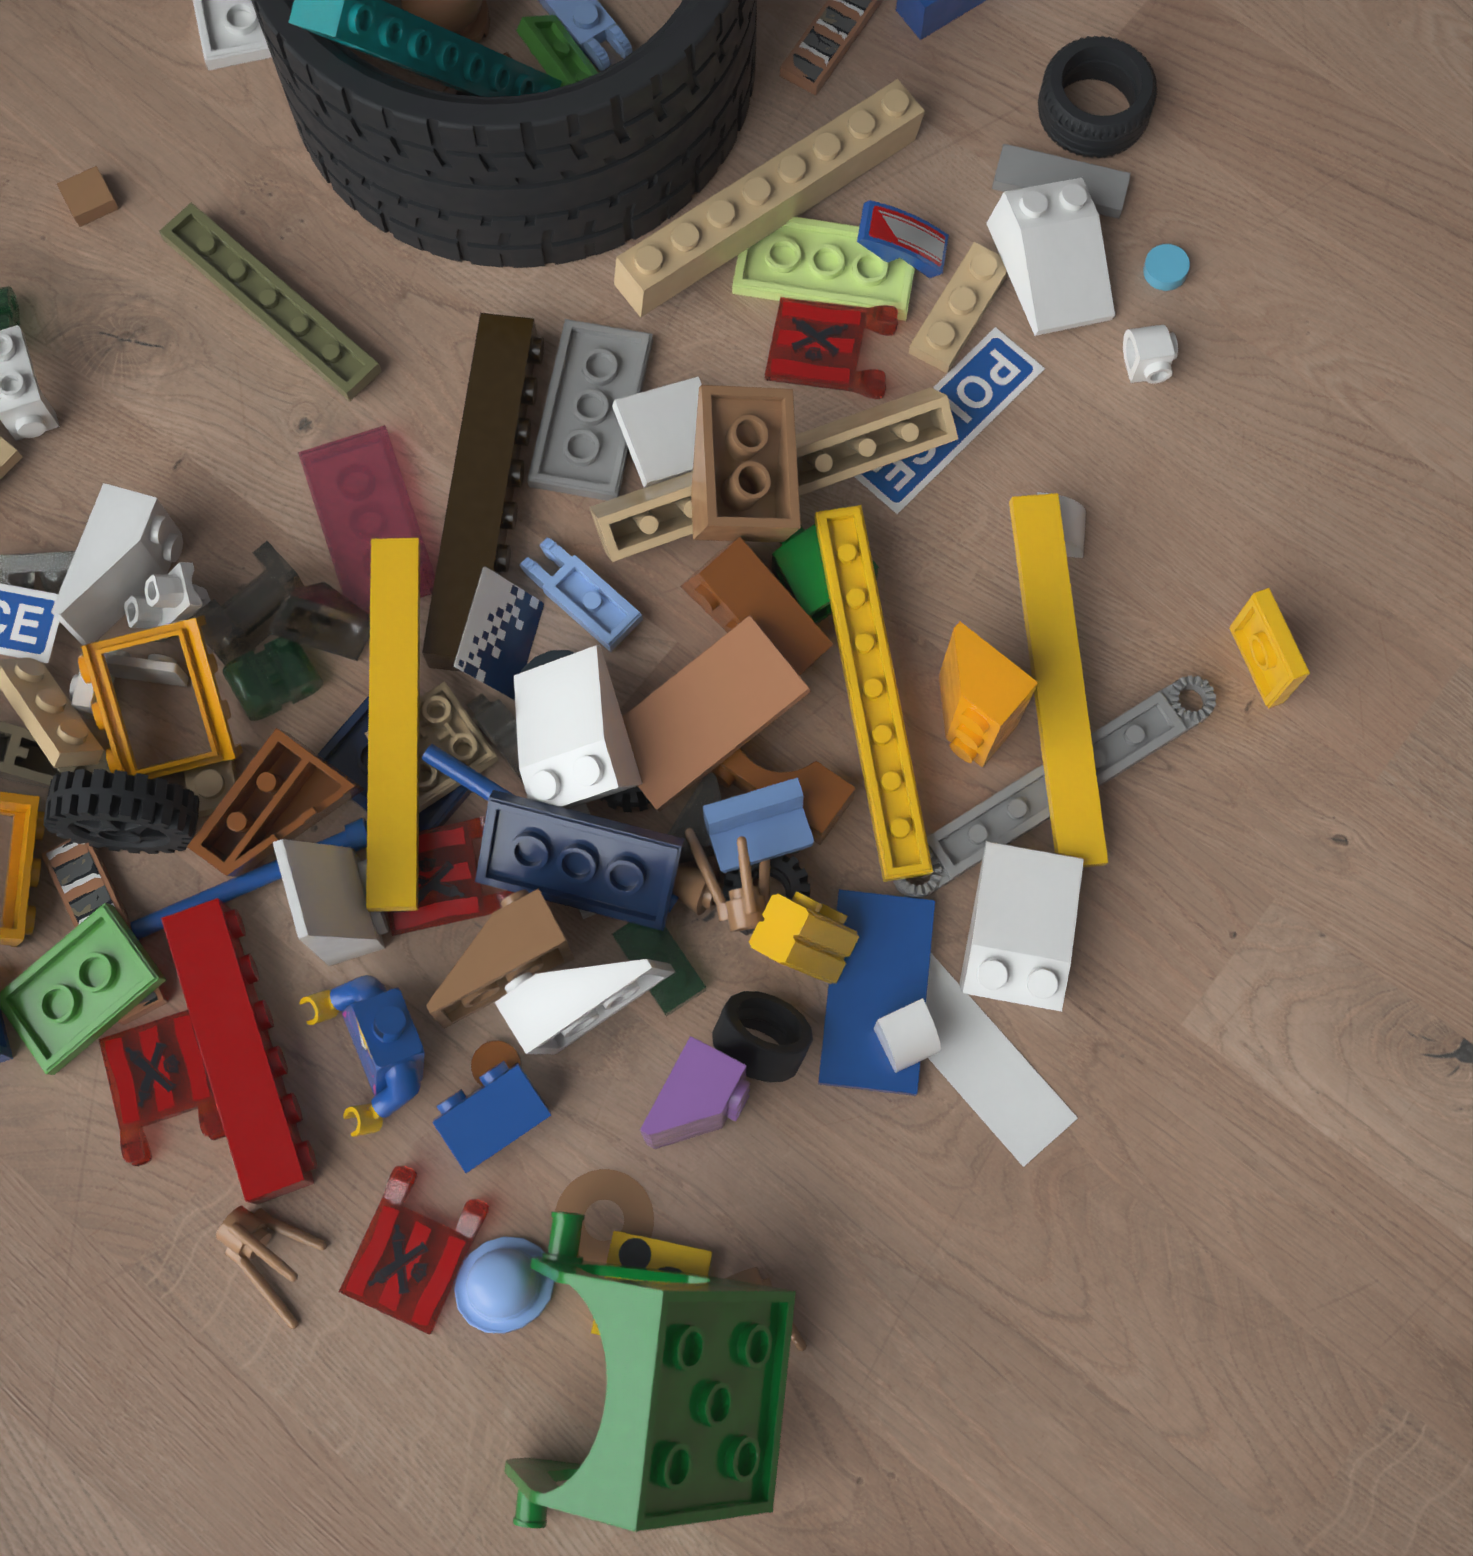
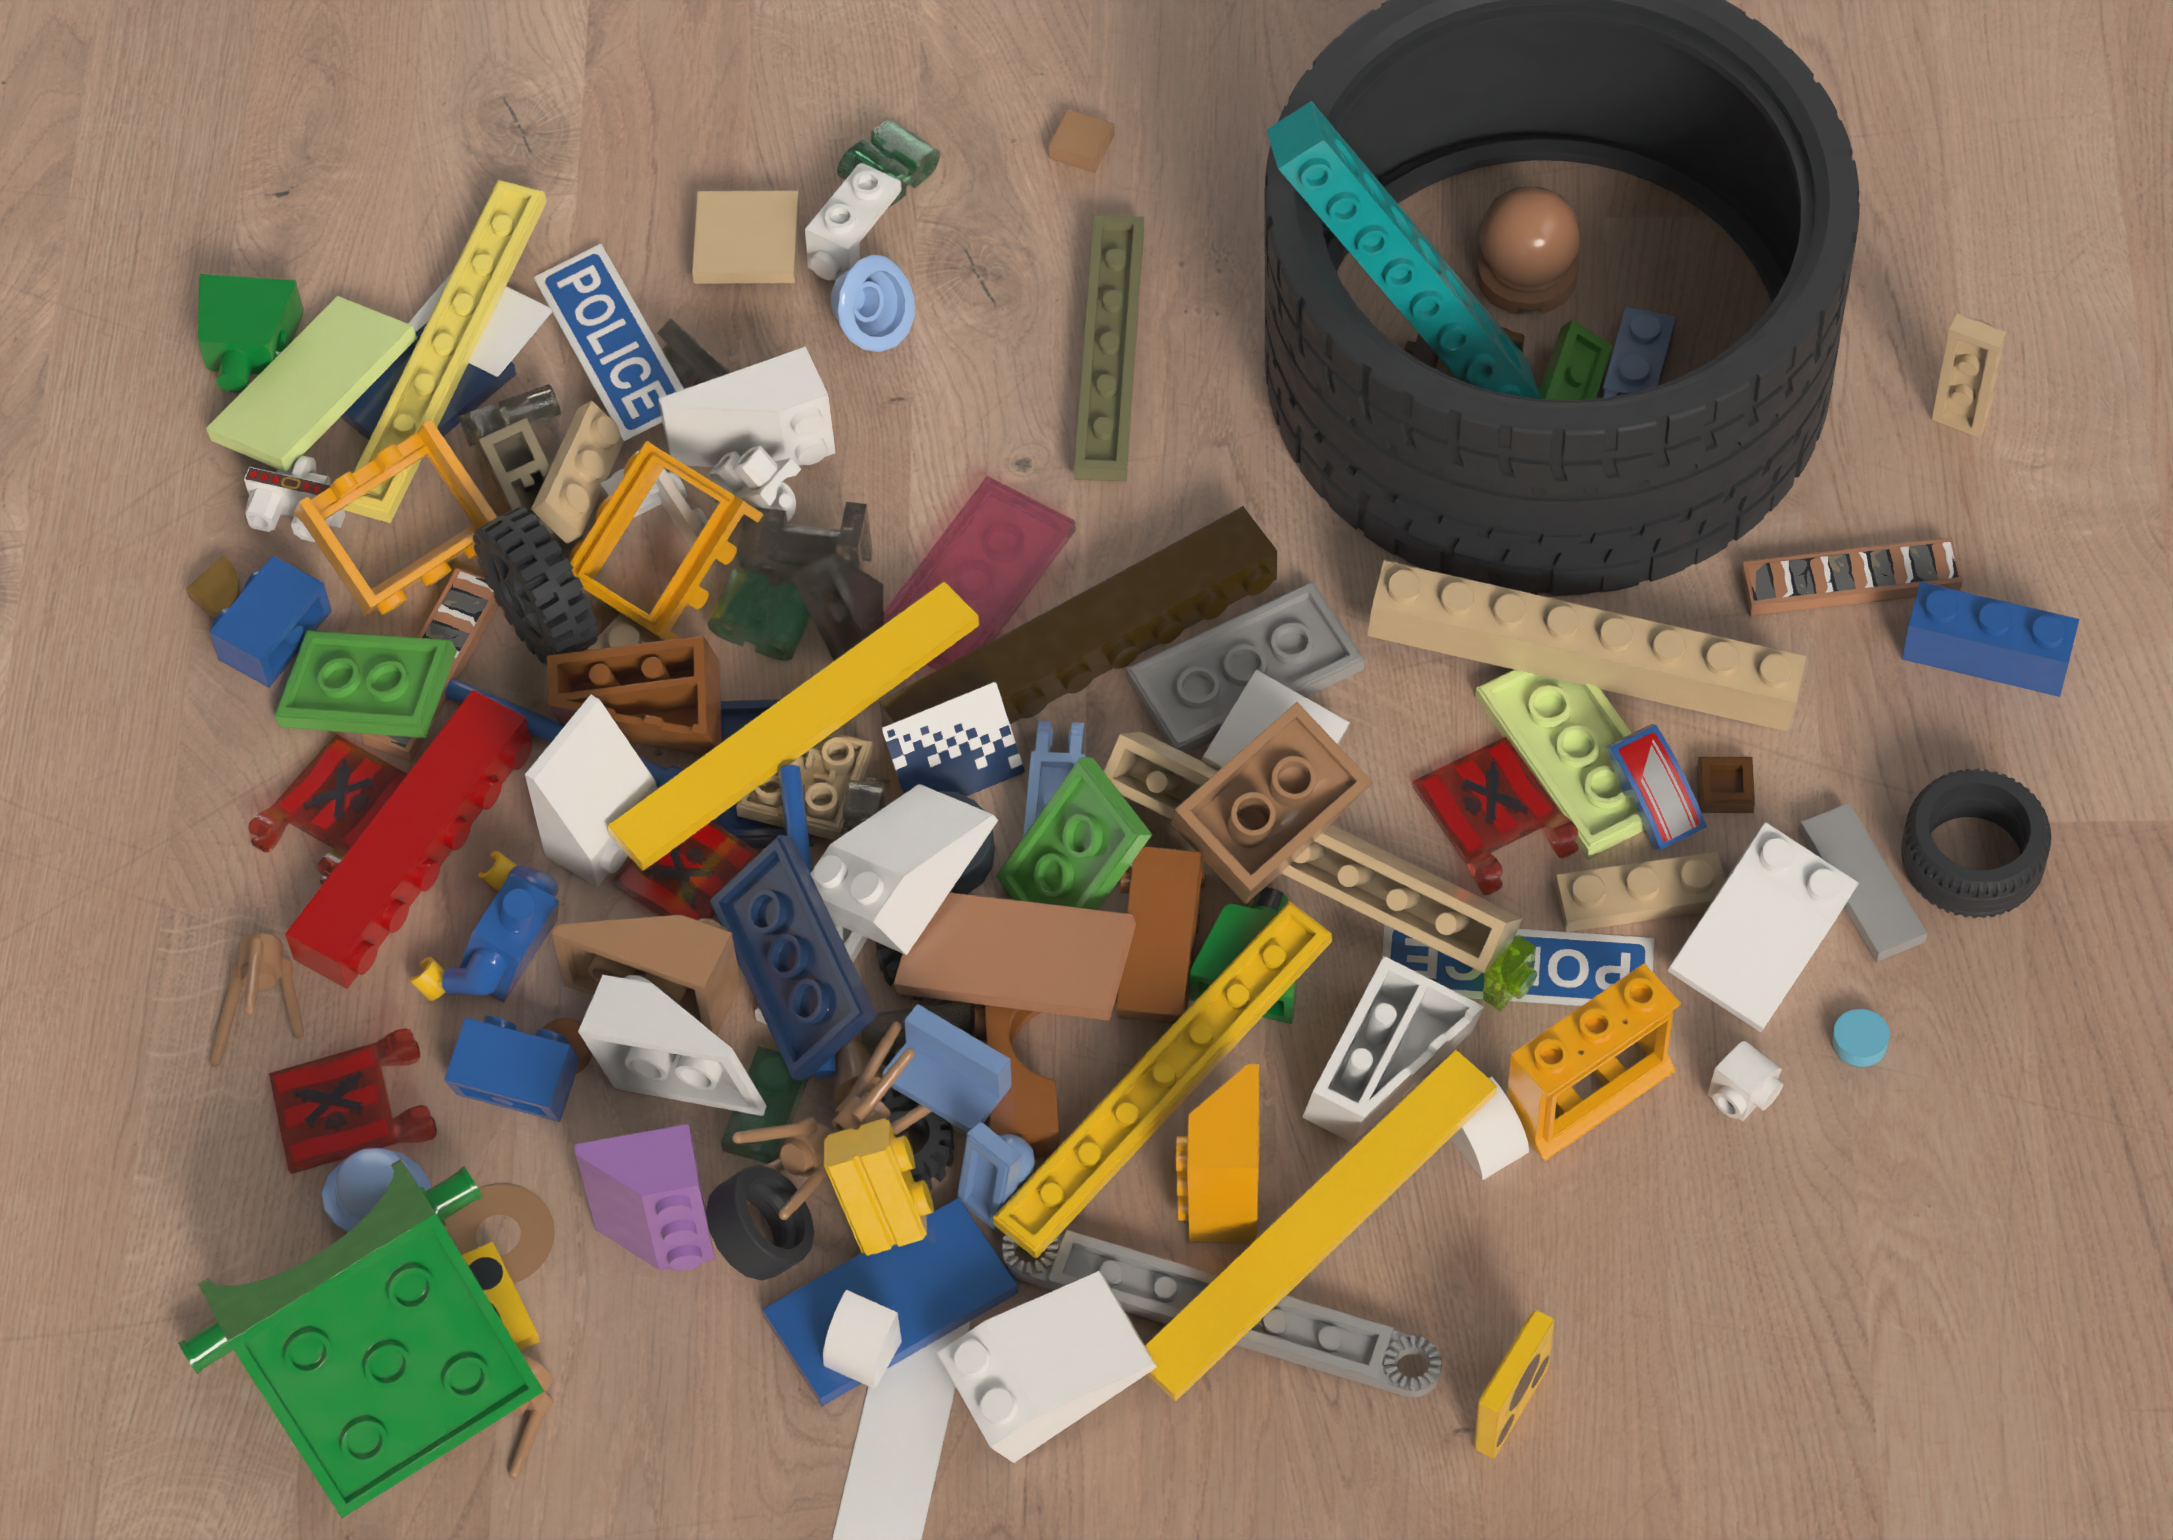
camera: 55 degrees right, 15 degrees down
(93, 419) = (874, 303): none -> light blue hat
(656, 613) = (1076, 843): none -> bright green tile
(725, 968) = (799, 1156): none -> medium nougat plant
(852, 852) = (992, 1171): none -> medium blue tile
(927, 199) = (1725, 784): none -> reddish brown tile
(958, 540) = (1388, 1047): none -> white wedge
(967, 424) = (1510, 974): none -> clear neon green plate
(1086, 380) = (1552, 1063): none -> light orange window

